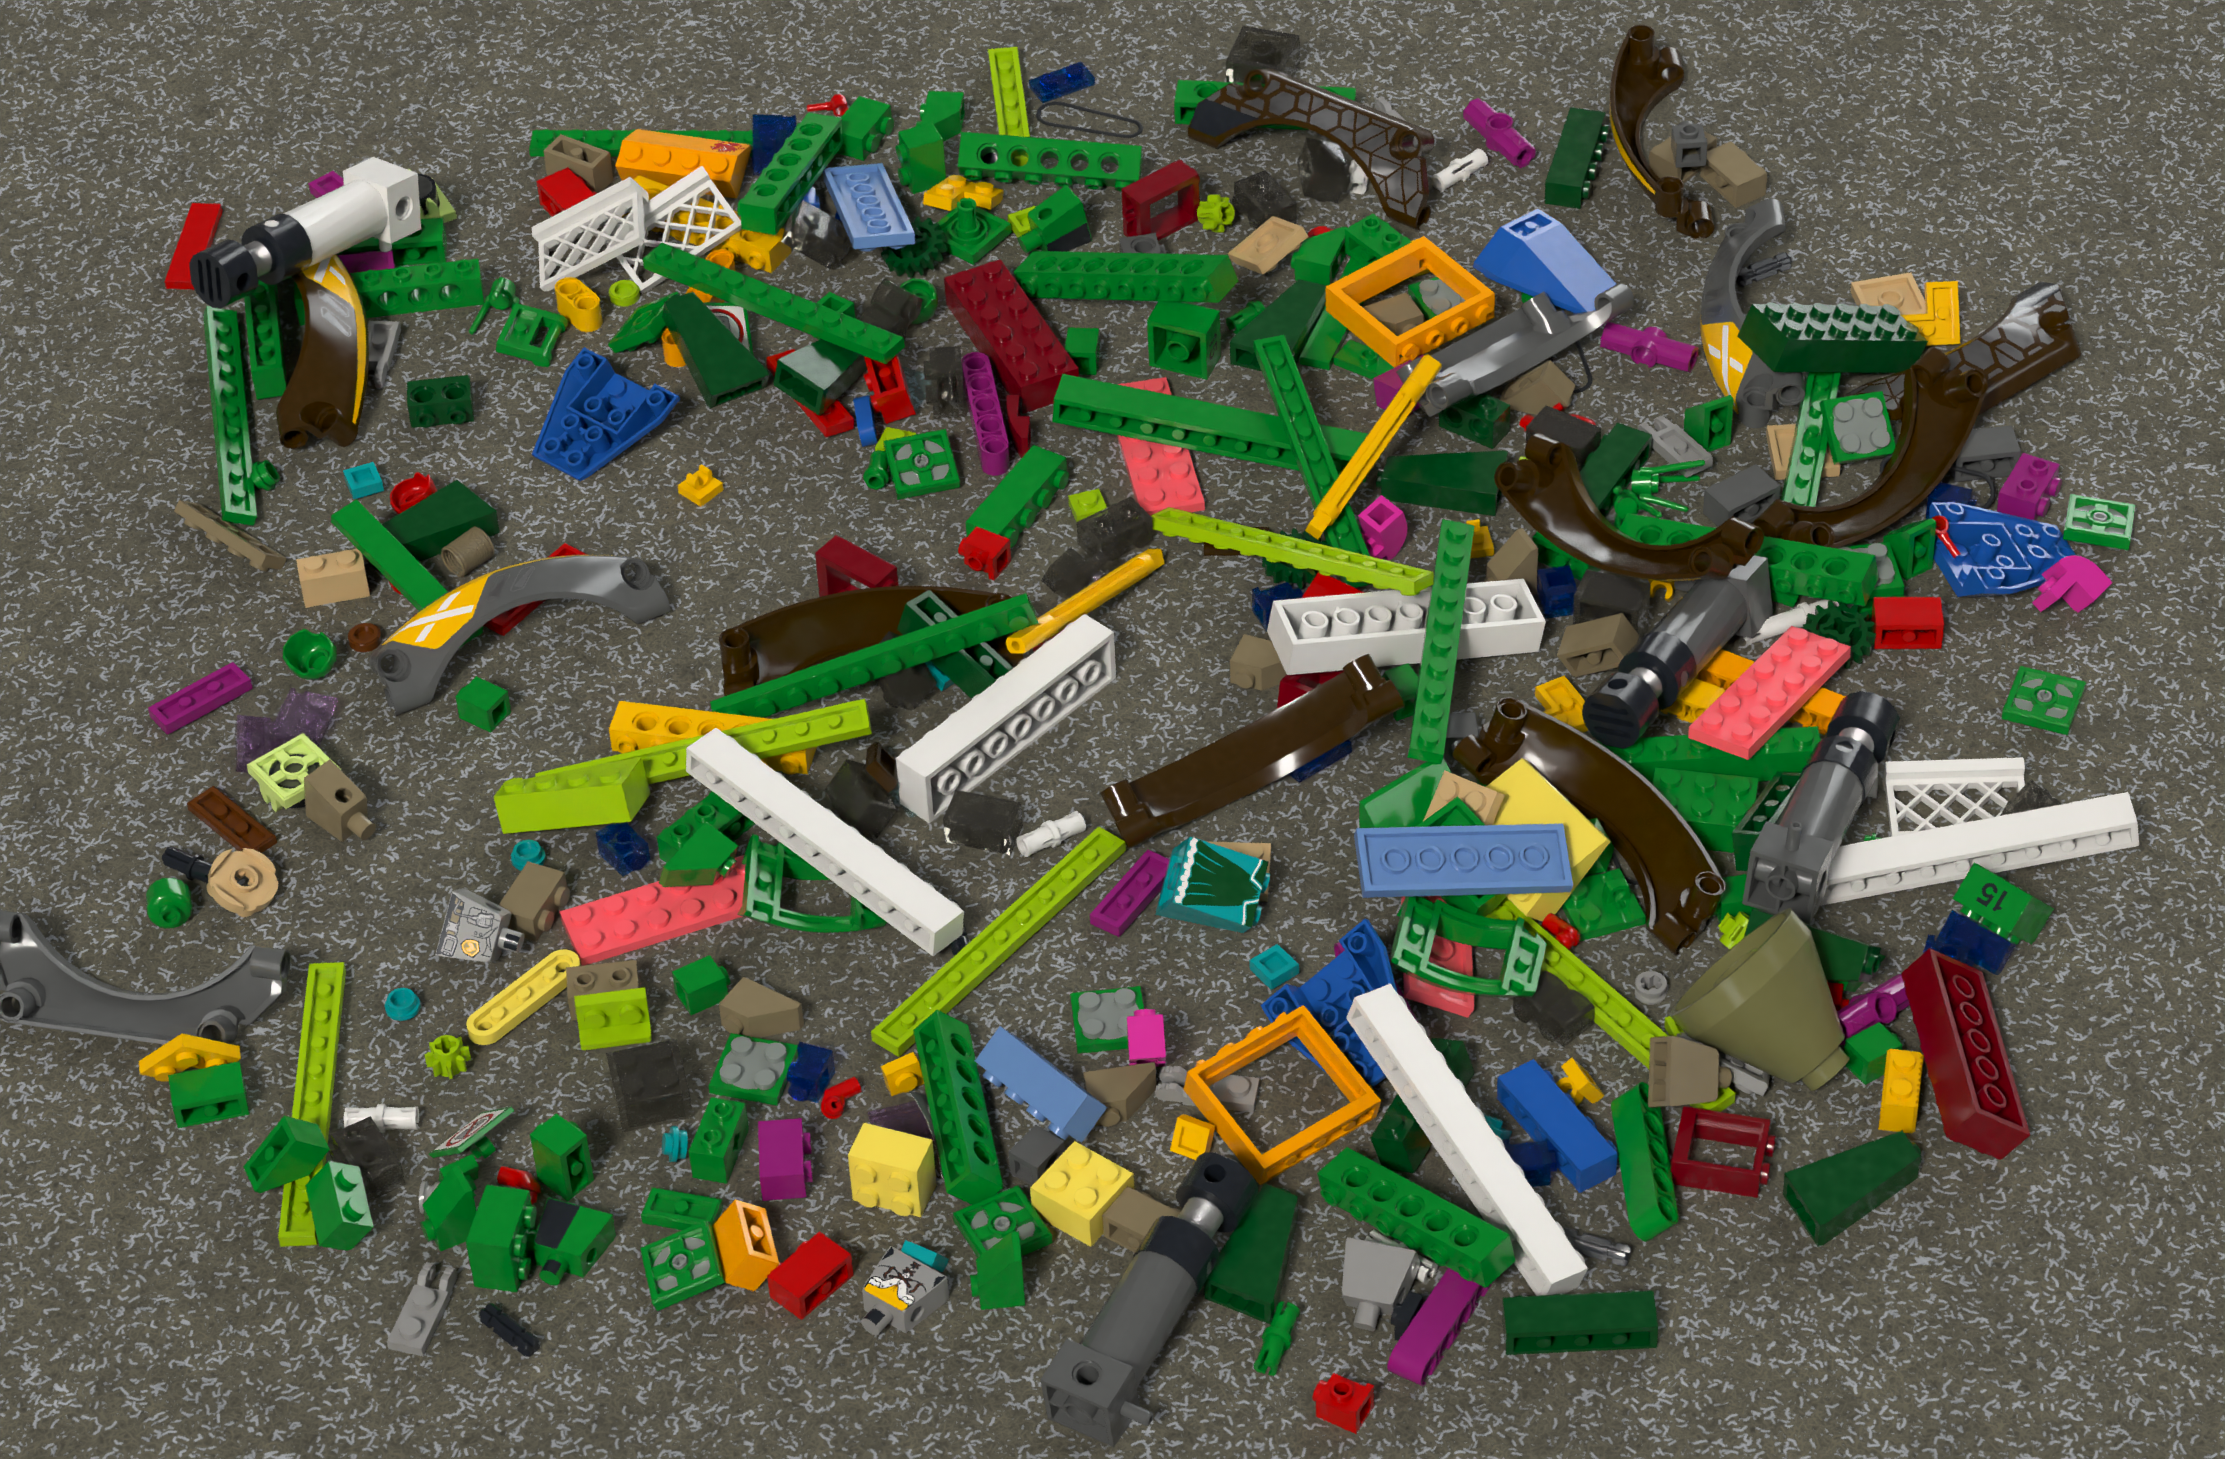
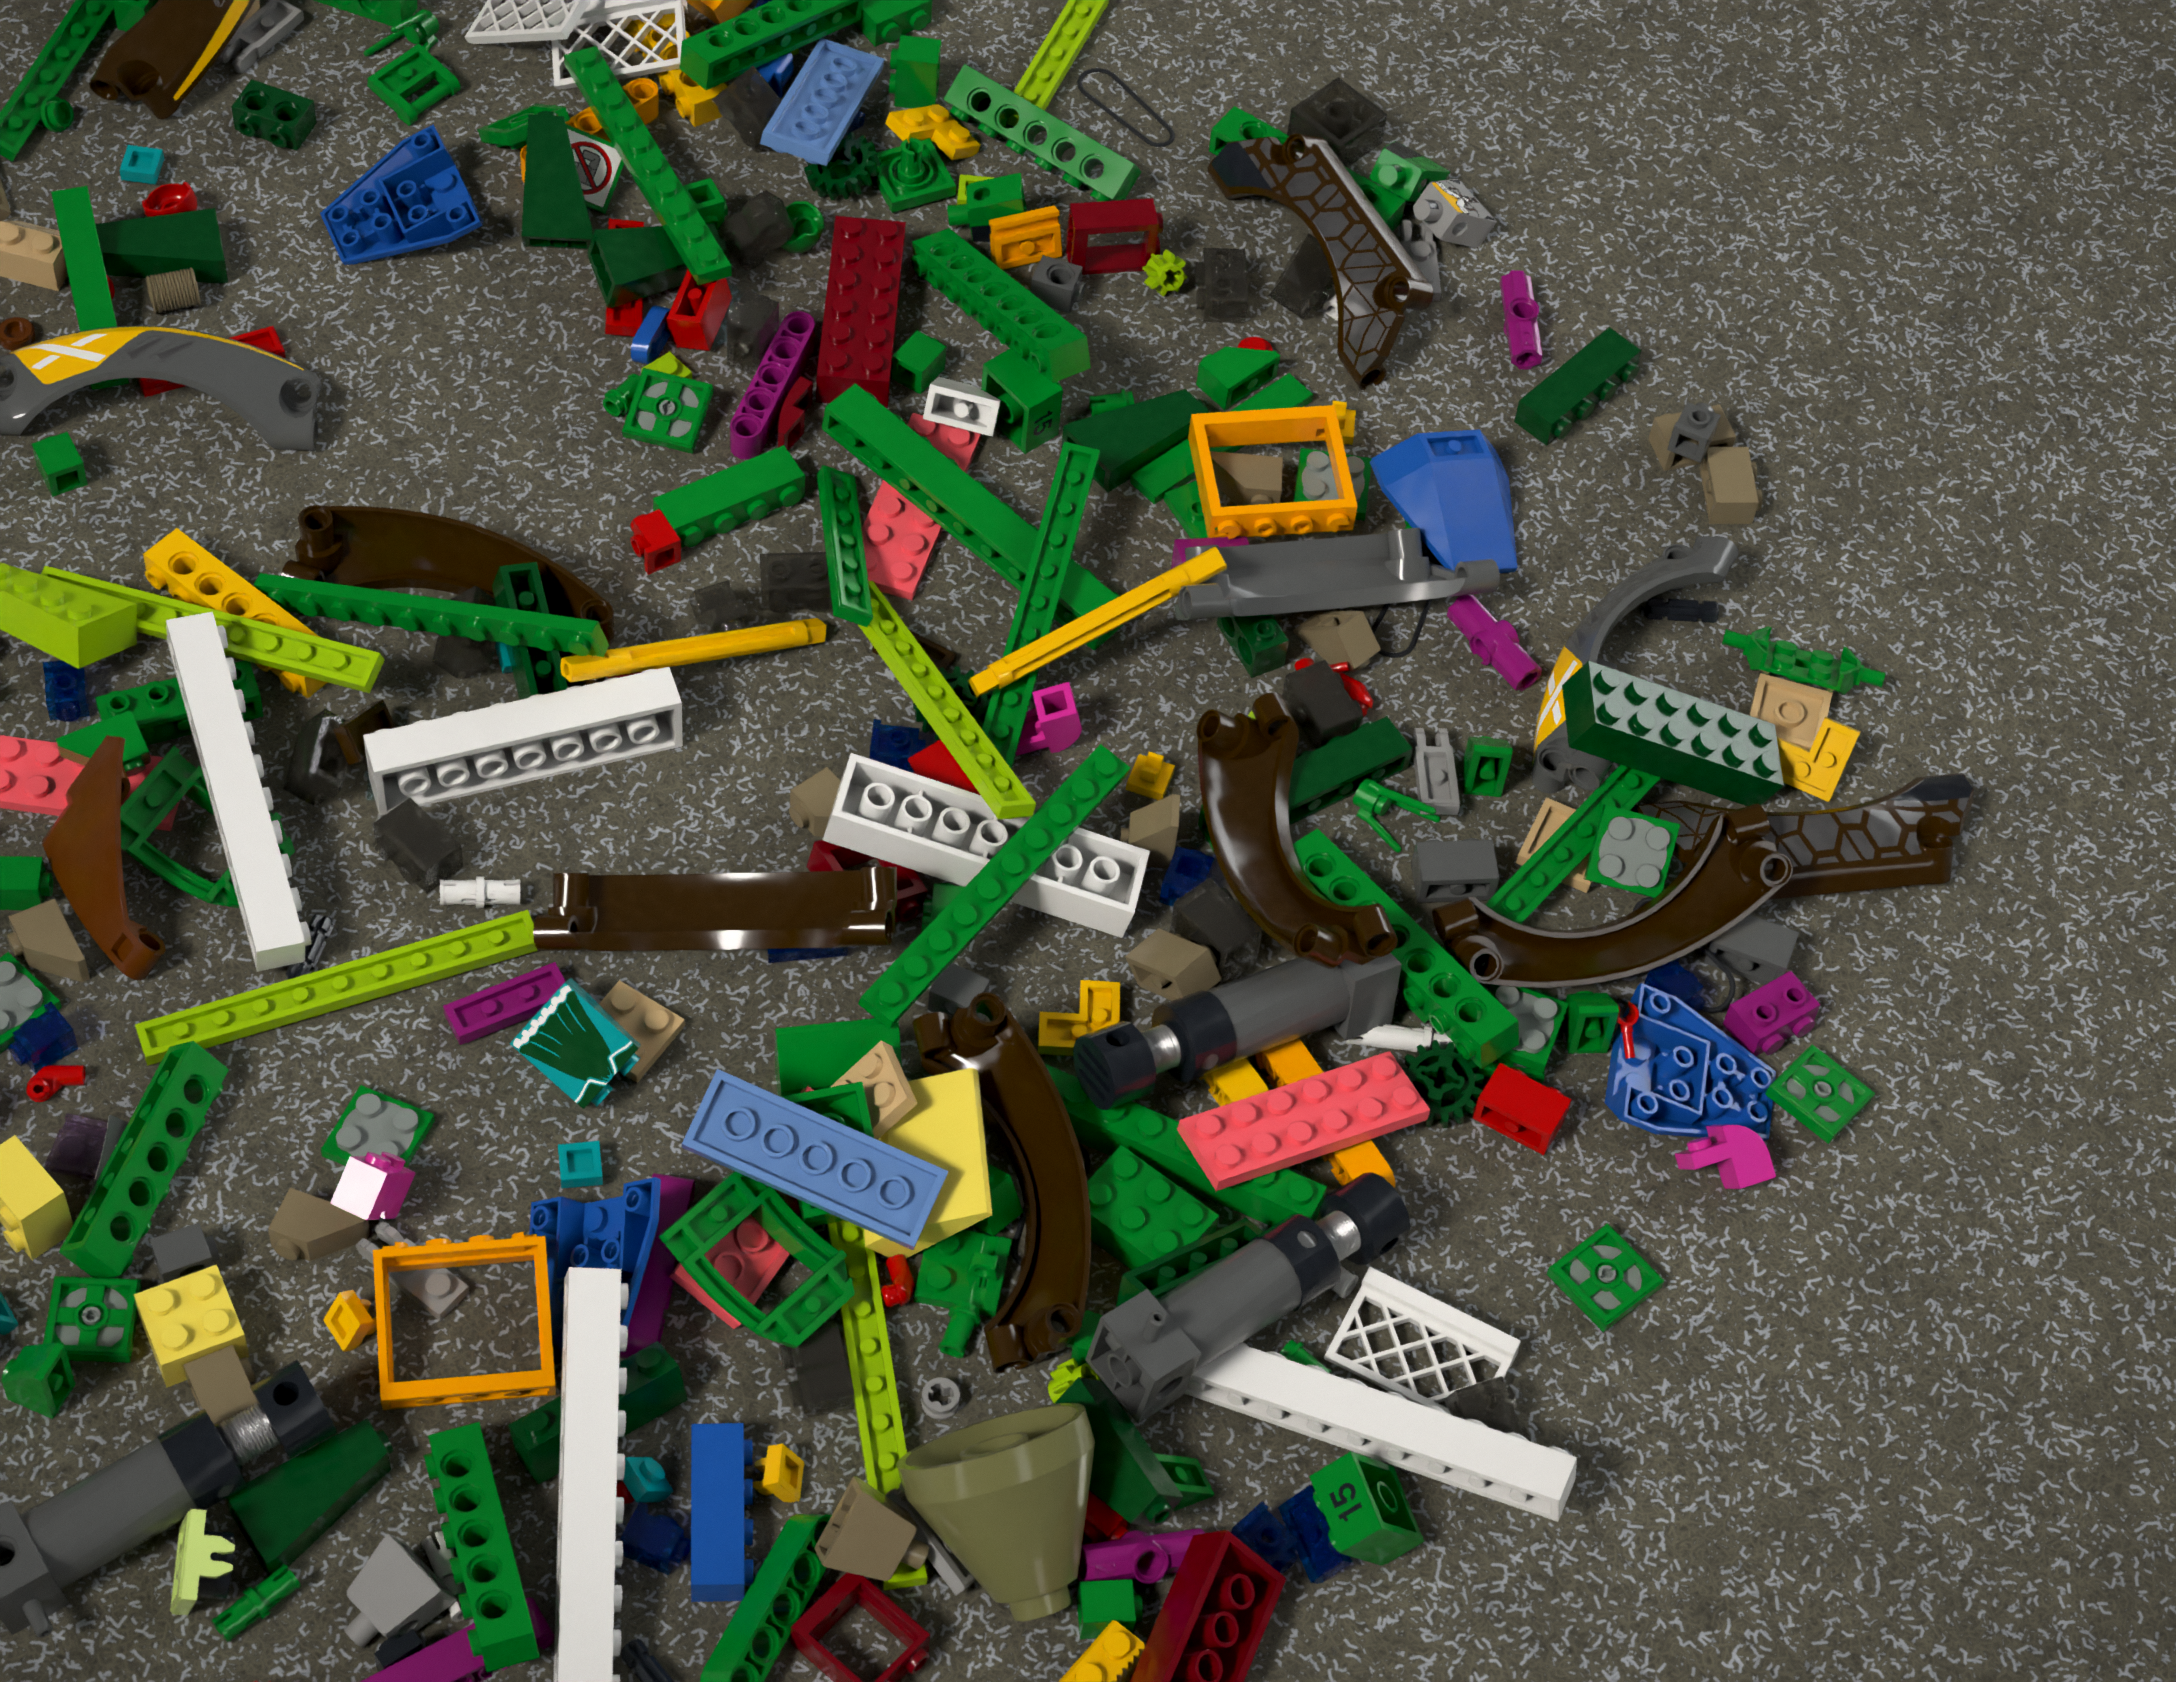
camera: 20 degrees right, 10 degrees up
(578, 304) = (480, 73): yellow beam -> none
(624, 293) = (538, 81): lime tile -> none
(700, 486) = (446, 328): yellow tile -> none
(753, 933) = (88, 861): none -> reddish brown panel
(843, 560) = (494, 499): dark red window -> none
(902, 1074) = (124, 1089): yellow plate -> none
(945, 111) = (977, 36): green slope -> none
(1040, 1084) = (238, 1179): medium blue brick -> none
(1061, 82) = (1129, 52): clear blue plate -> none
(1086, 503) = (798, 536): lime plate -> none
(1095, 230) = (1025, 237): none -> light orange plate
(1135, 488) = (844, 546): none -> green tile
(1143, 363) = (961, 406): none -> white slope
(1223, 1323) = (201, 1563): none -> yellowish green piece
(1268, 245) = (1186, 335): tan plate -> none
(1341, 70) = (1403, 171): none -> green torso
(1372, 240) = (1294, 381): green brick -> none
(1391, 82) = (1453, 213): none -> light grey torso
(1444, 480) = (1167, 689): dark green slope -> none
(1469, 163) = (1473, 340): white pin -> none
(1626, 502) = (1332, 816): green plant -> none
(1627, 933) = (959, 1329): none -> green pin
(1638, 83) = (1698, 332): dark brown panel -> none
(1906, 257) = (1801, 665): none -> green plate

